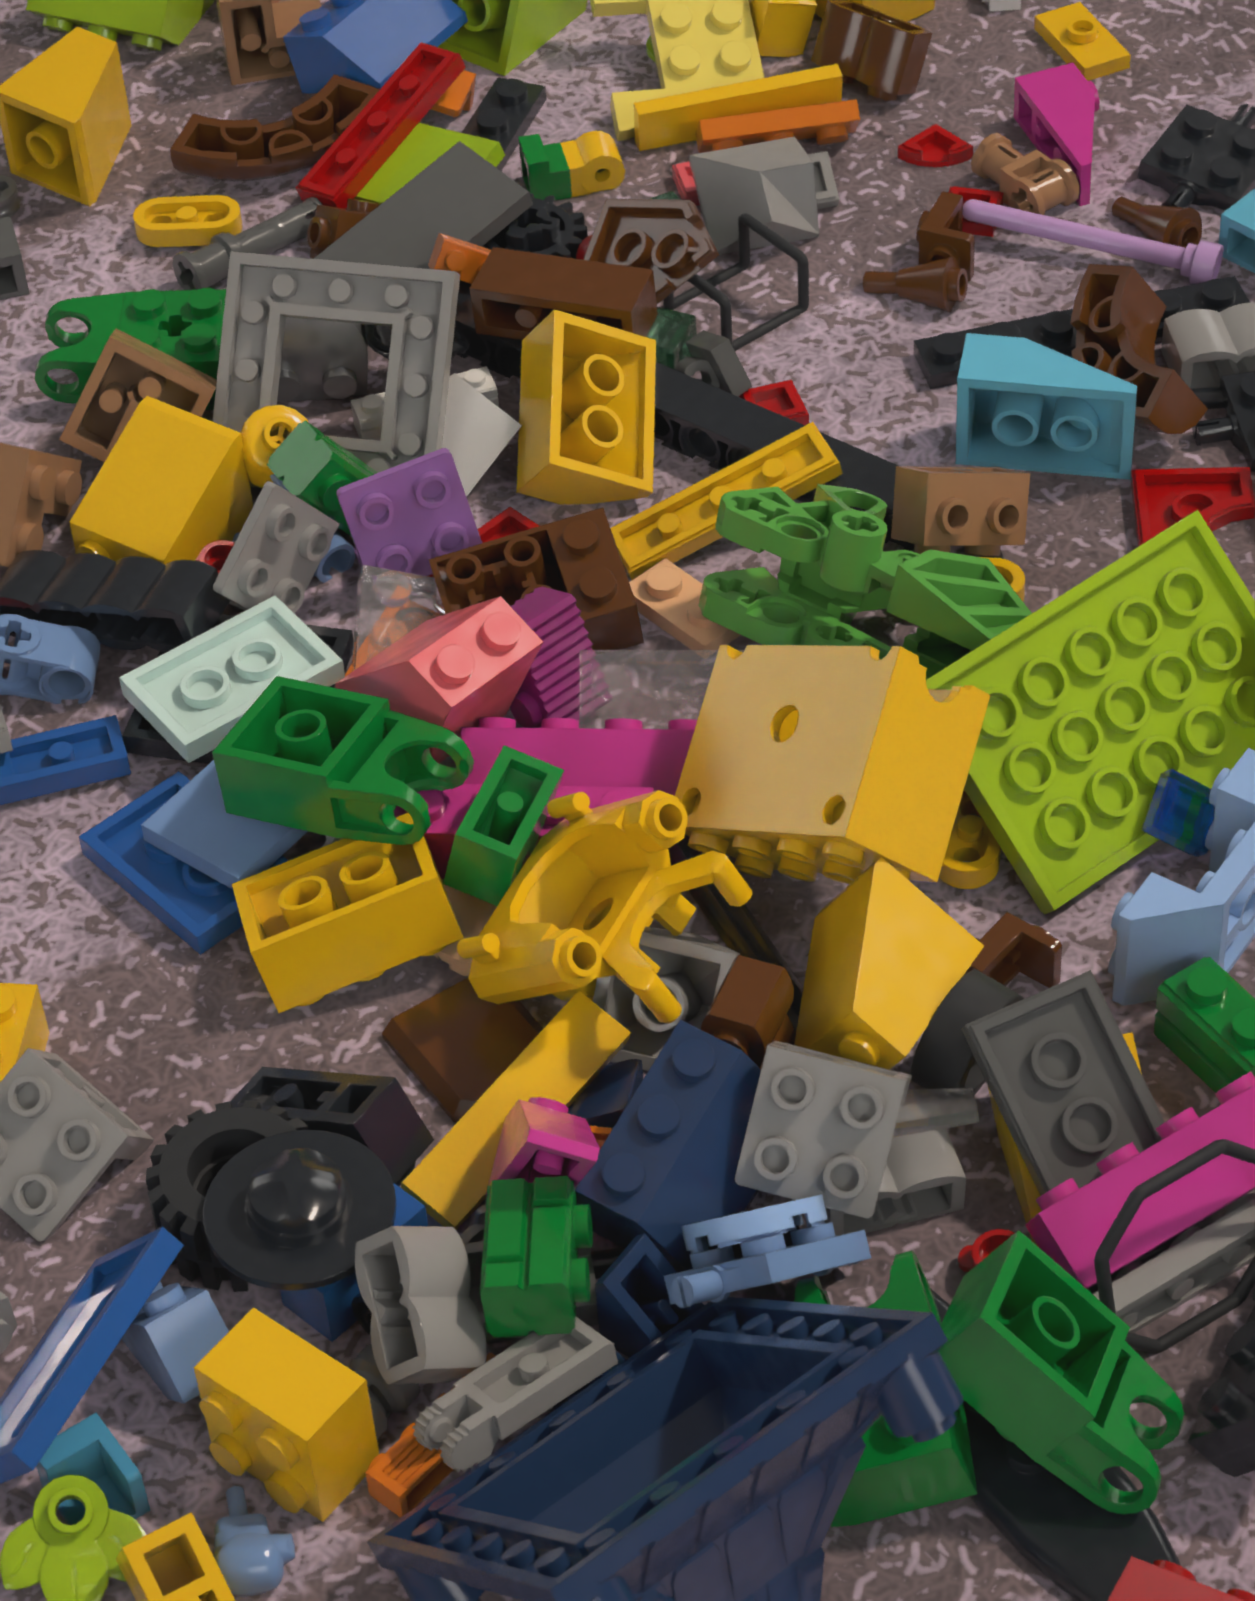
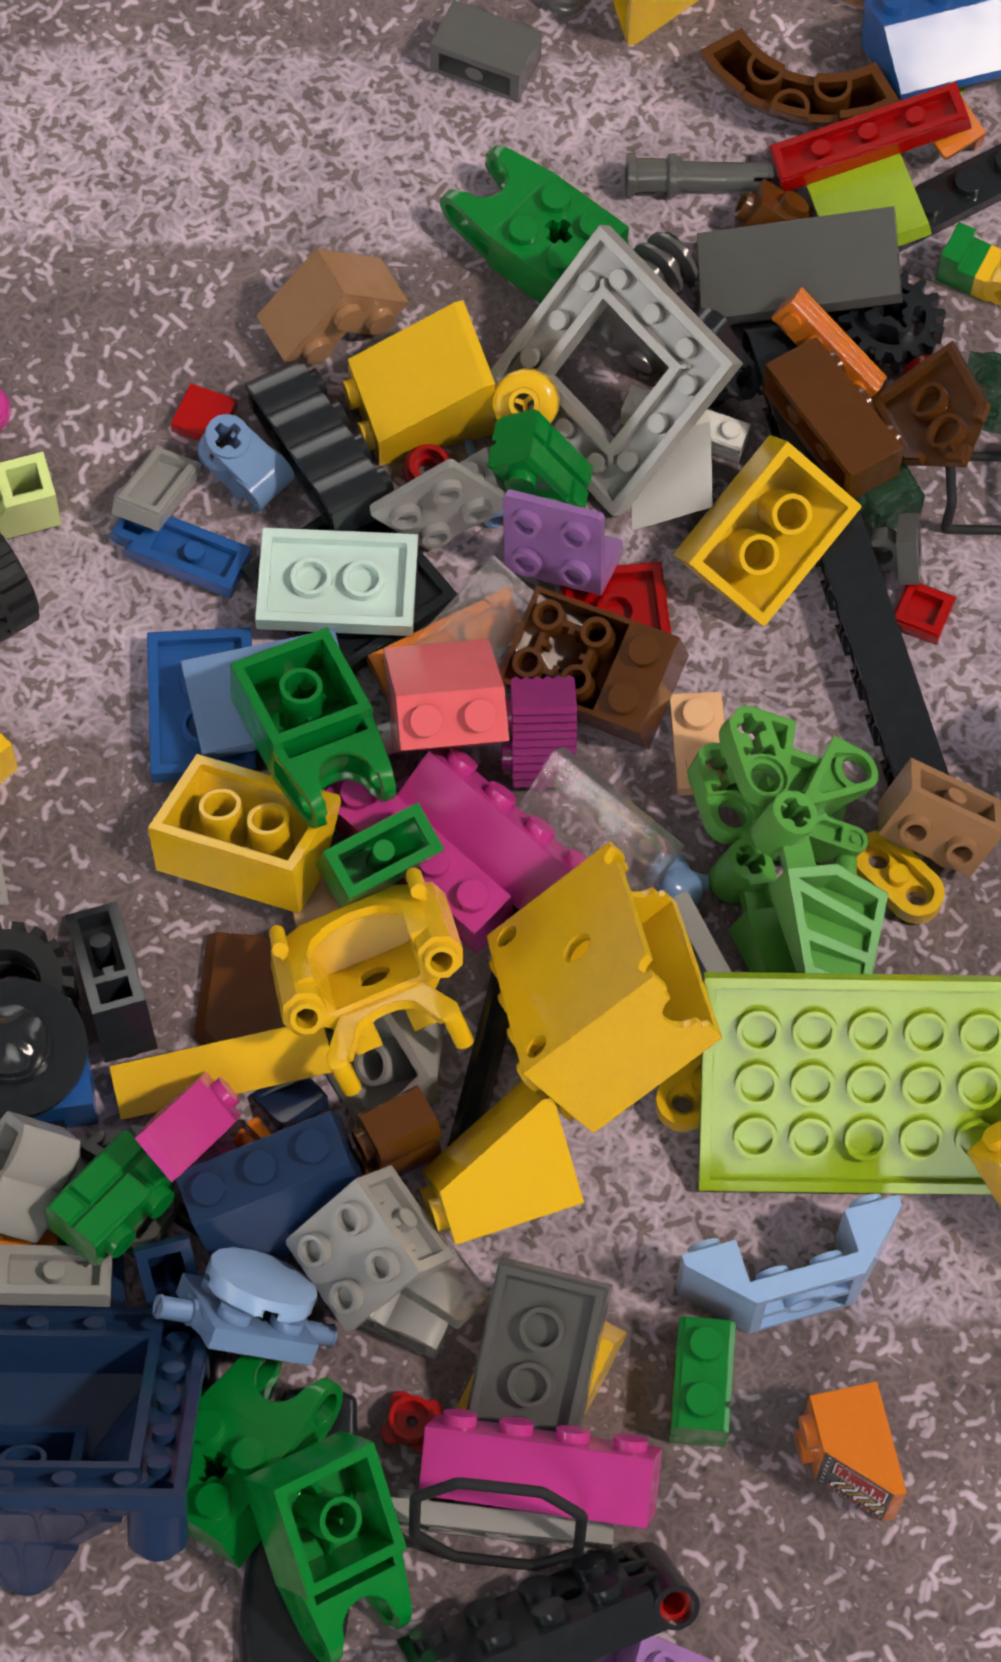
camera: 35 degrees right, 20 degrees up
(120, 381) = (485, 274): medium nougat brick -> none
(186, 220) = (679, 116): yellow plate -> none
(689, 517) = (796, 679): yellow tile -> none
(943, 1053) = (544, 1242): black tyre -> none
(1019, 947) = (617, 1199): reddish brown bracket -> none
(1180, 813) = (847, 1181): tile -> none

